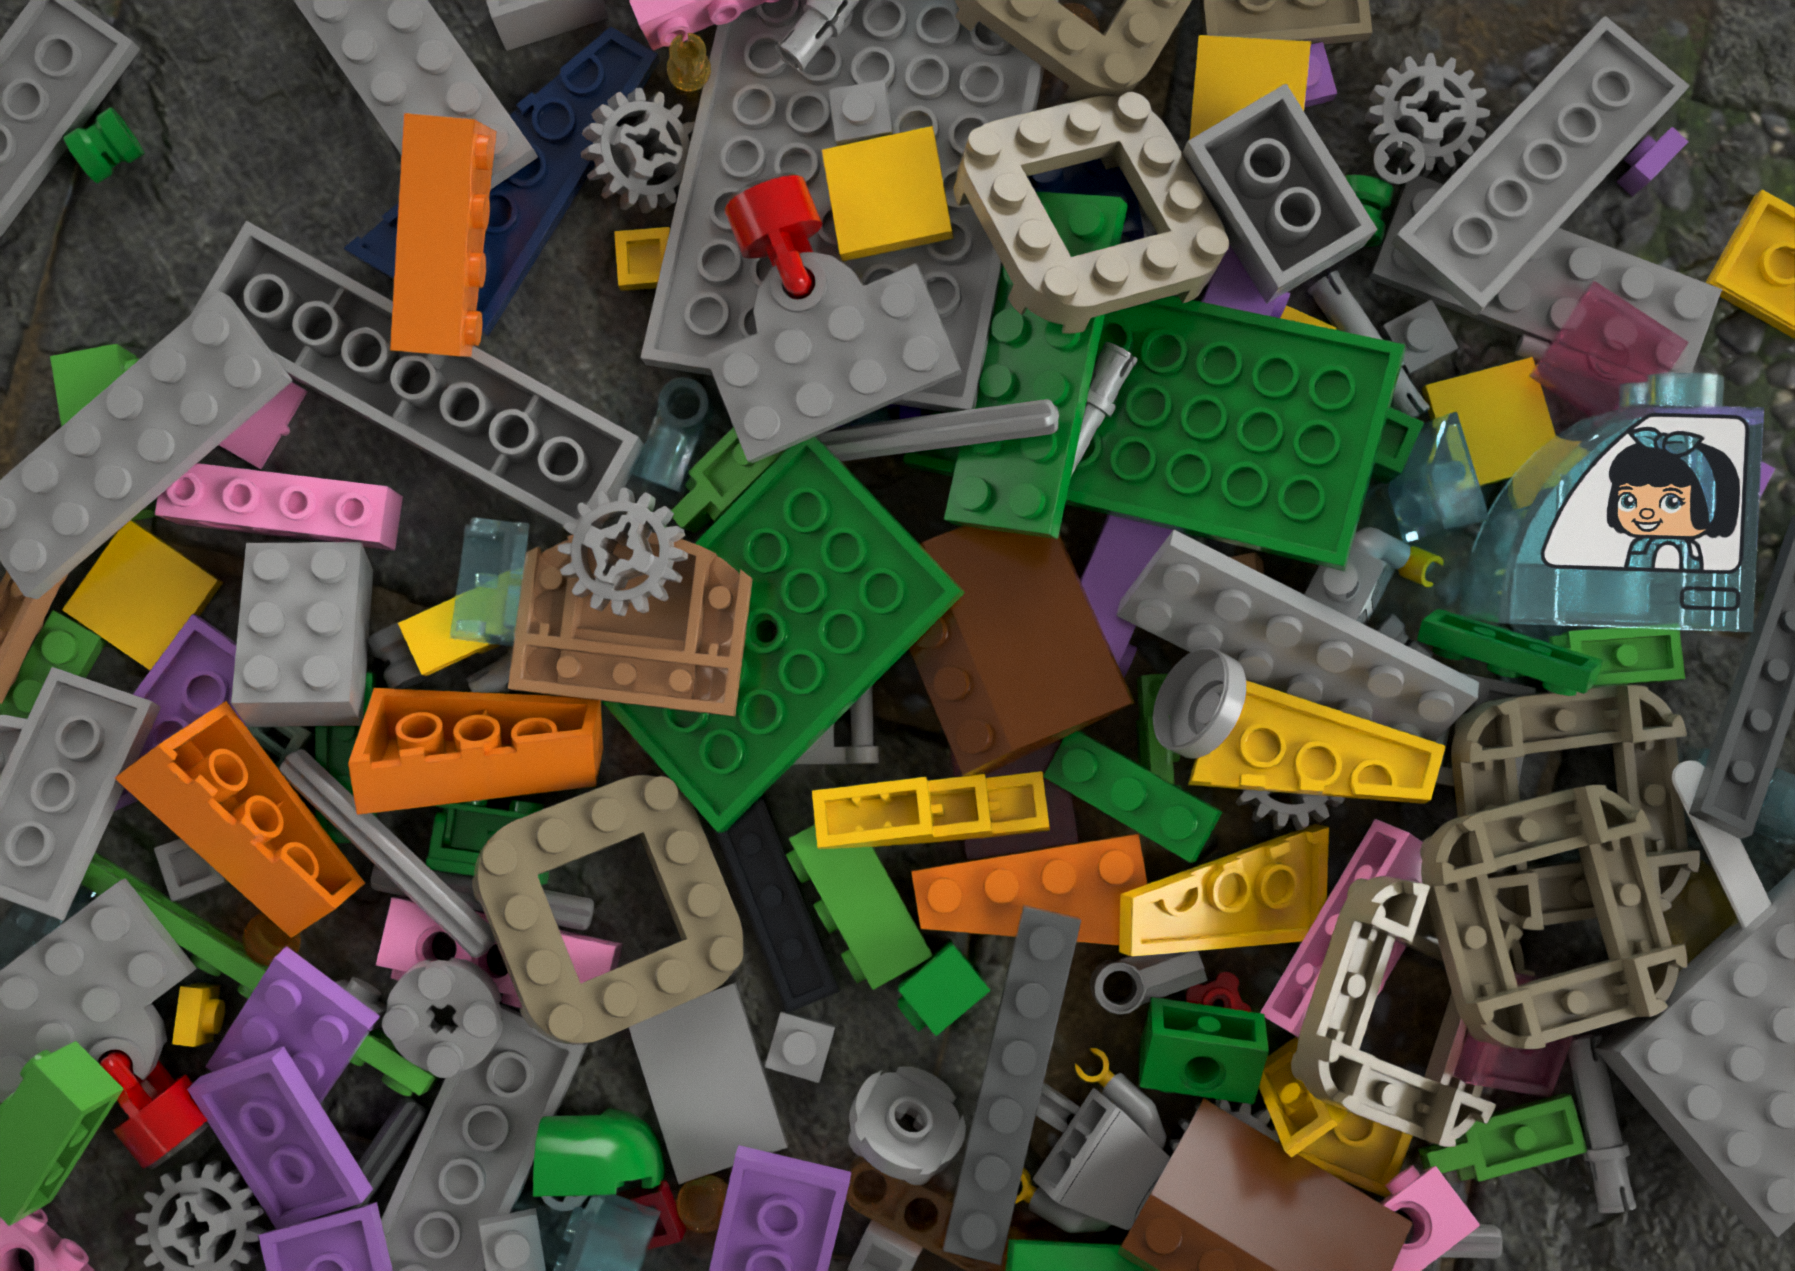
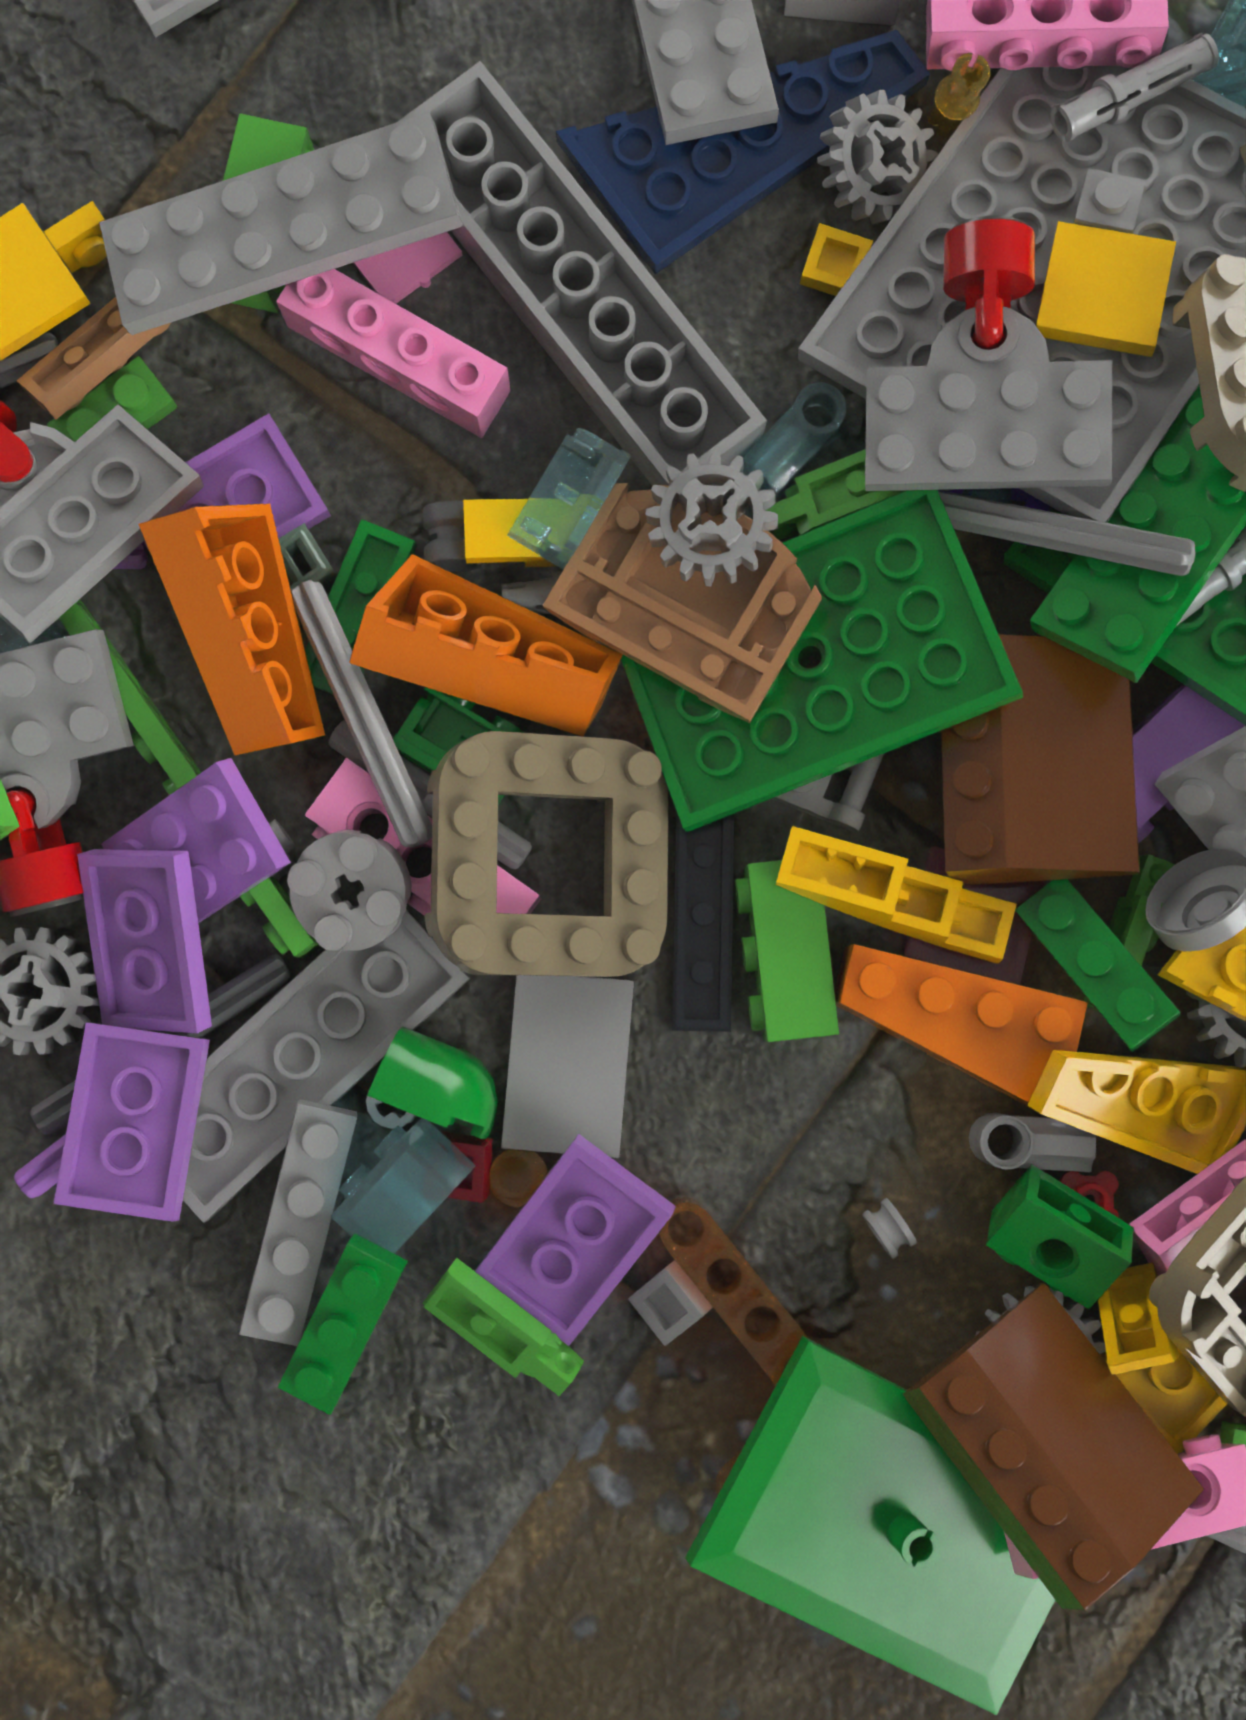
camera: 15 degrees right, 0 degrees up
(141, 594) = (227, 375): yellow tile -> none
(186, 871) = (164, 652): light grey plate -> none
(198, 1014) = (115, 792): yellow plate -> none
(265, 940) = (209, 745): clear orange plate -> none
(303, 634) = (367, 474): light grey brick -> none
(441, 234) = (666, 142): orange wedge -> none
(800, 1046) = (670, 1068): light grey plate -> none
(888, 1146) = (725, 1202): light grey plate -> none
(940, 989) = (836, 1068): green brick -> none
(1011, 1084) = (867, 1188): dark grey plate -> none
(1102, 1160) = (918, 1302): light grey torso -> none

